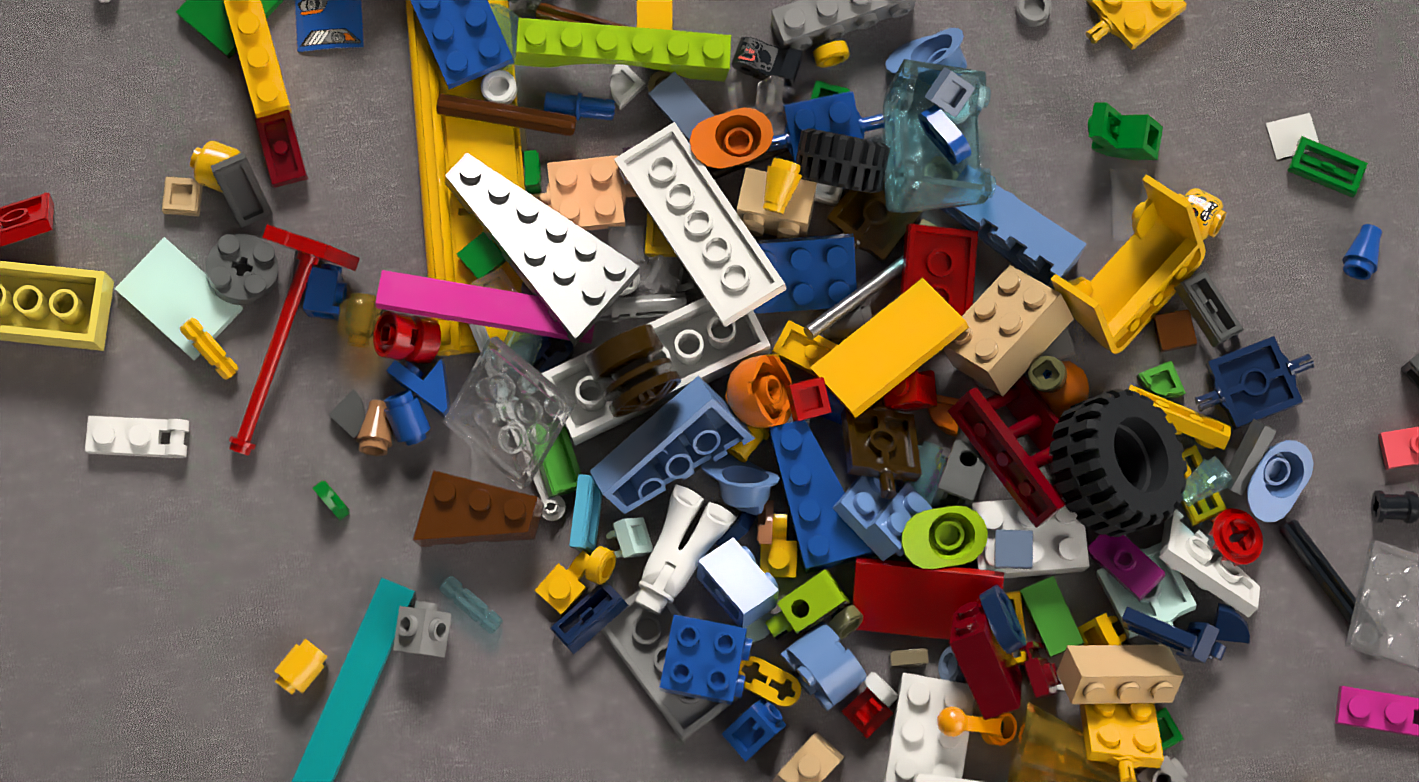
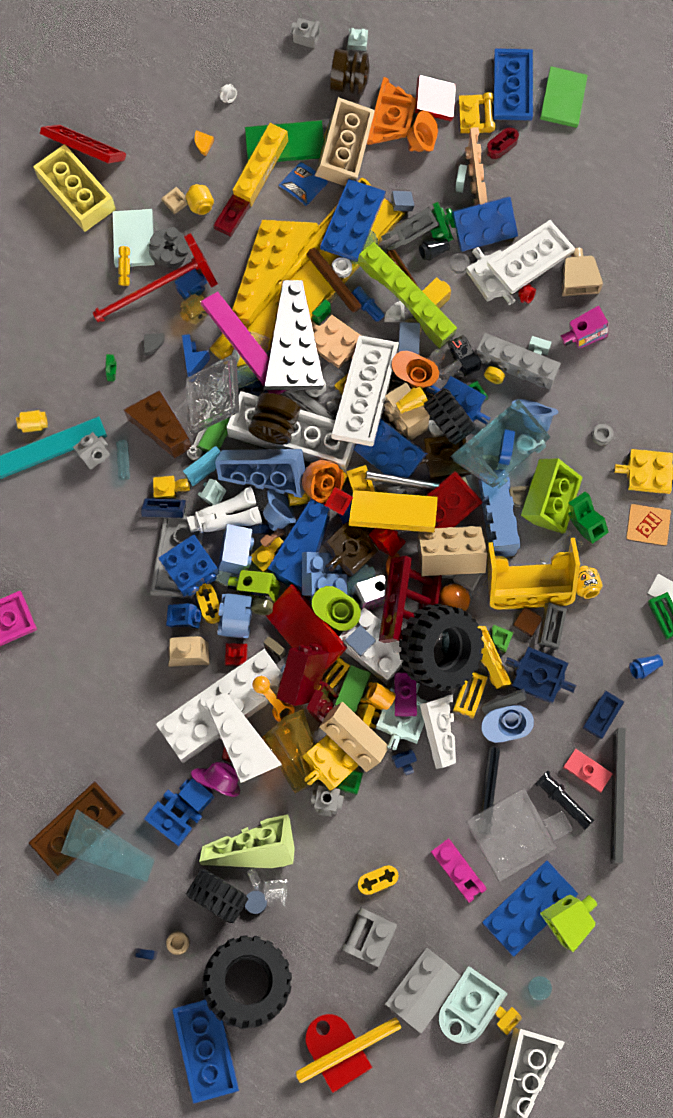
camera: 45 degrees right, 5 degrees down
(136, 436) = (62, 275): white plate -> none
(138, 83) = (203, 142): none -> light orange tile
(241, 189) = (198, 215): dark grey tile -> none
(375, 431) = (155, 357): medium nougat cone -> none
(397, 160) = (269, 262): none -> yellow wing
(406, 417) = (172, 362): blue brick -> none
(407, 337) = (205, 332): red wheel -> none
(481, 256) = (265, 325): green tile -> none
(600, 565) = (188, 491): yellow tile -> none
(881, 689) = (250, 648): white tile -> none
(950, 92) = (526, 431): sand blue tile -> none
(1002, 619) = (325, 663): dark blue beam -> none
(1013, 178) = (519, 495): none -> dark tan tile
(1047, 374) = (450, 584): olive tile -> none
(1050, 144) = (549, 494): none -> lime slope
(1097, 596) = (378, 696): none -> light orange piece
(1159, 631) = (387, 733): dark blue tile -> none
(1196, 71) = (648, 524): none -> clear orange sticker
(1205, 481) = (474, 693): clear light blue cone -> none
(1231, 625) = (425, 766): dark blue tile -> none
(1232, 522) = (473, 726): red gear -> none
(1373, 360) = (603, 715): none -> dark blue plate

